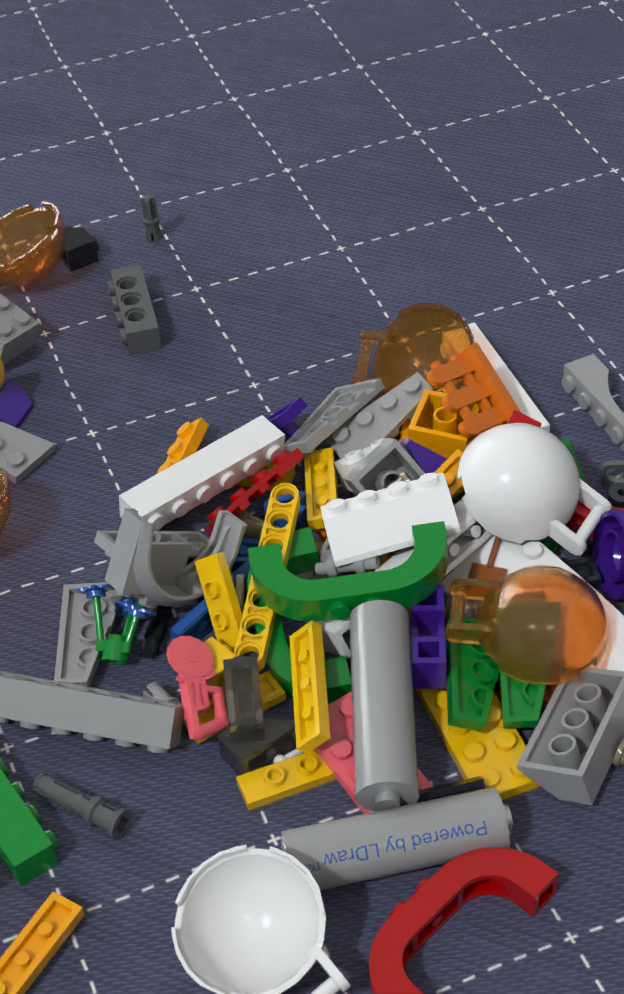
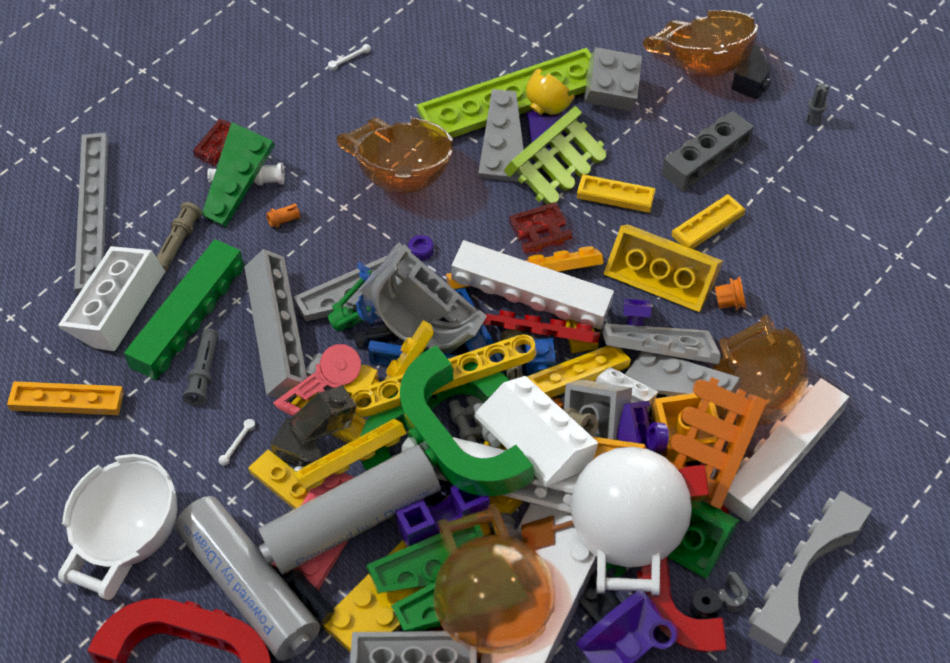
camera: 60 degrees right, 10 degrees up
(48, 405) = (546, 160): none -> lime fence
(69, 559) = (421, 247): none -> dark purple tile
(116, 454) = (539, 221): none -> clear red plate
(128, 388) = (616, 193): none -> yellow plate
(187, 789) = (249, 425): none -> white hinge
(215, 341) = (708, 222): none -> yellow plate
(243, 388) = (662, 267): none -> yellow slope
(311, 354) = (731, 295): none -> orange piece
(448, 441) = (657, 436): none -> dark purple tile

